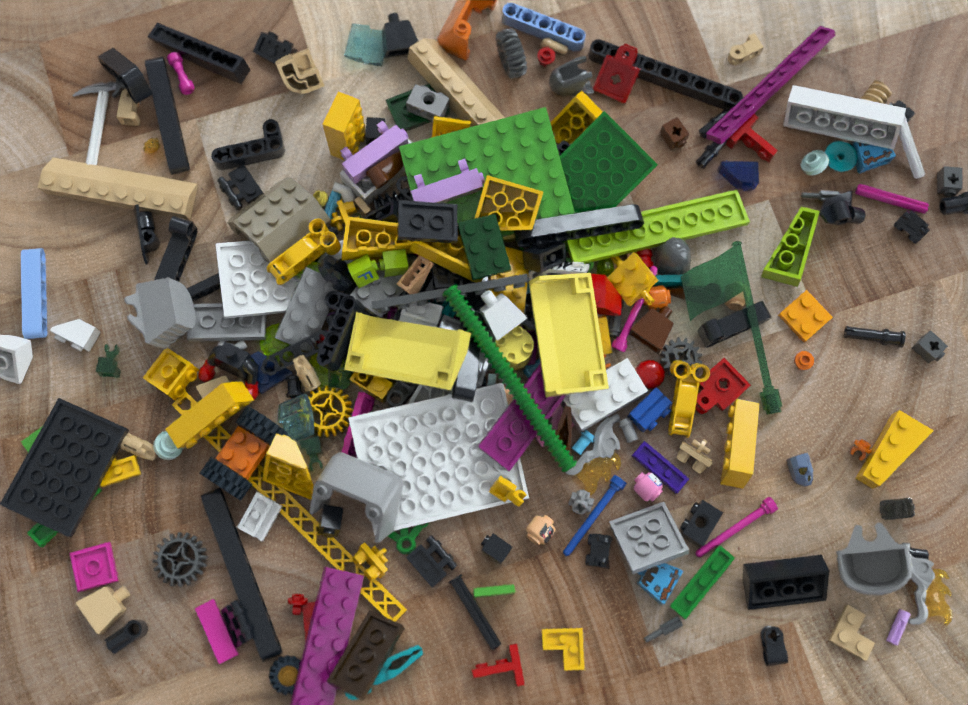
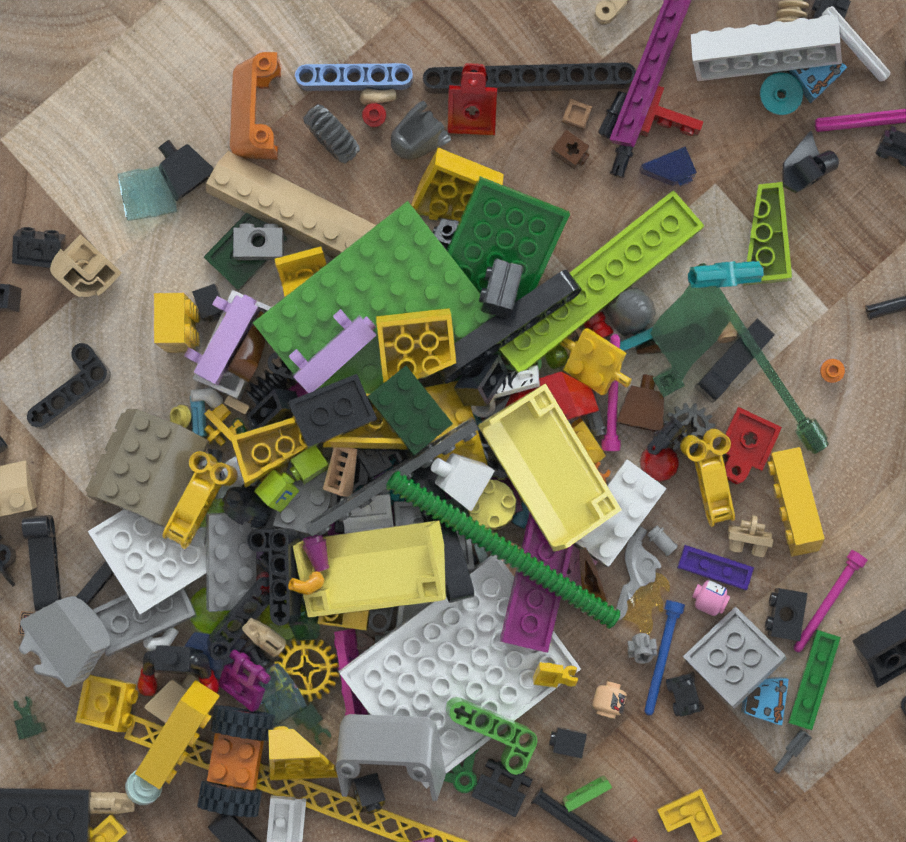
camera: 20 degrees left, 10 degrees up
(244, 182) = (82, 434): black plate -> none
(273, 402) = (244, 687): none -> magenta plate
(354, 345) = (307, 587): none -> light orange arm
(372, 323) = (316, 550): none -> magenta cone
(374, 558) = (444, 822): yellow hips -> none
(441, 509) = (489, 729): none -> bright green beam
(582, 443) = (615, 577): medium azure pin -> none
(587, 195) = (501, 288): none -> brick
(649, 410) = (677, 507): blue brick -> none
(660, 354) = (662, 440): none -> black piece
(661, 296) = (635, 366): orange head -> none
(680, 314) = (668, 381): none -> clear green piece
(688, 113) = (576, 114): none -> medium nougat tile
(753, 254) = (725, 274): none -> teal piece
(801, 469) = (877, 501): sand blue rock -> none
(805, 316) = (813, 313): light orange plate -> none
(814, 162) = (753, 115): light aqua plate -> none
(822, 195) = (779, 152): dark grey axle -> none

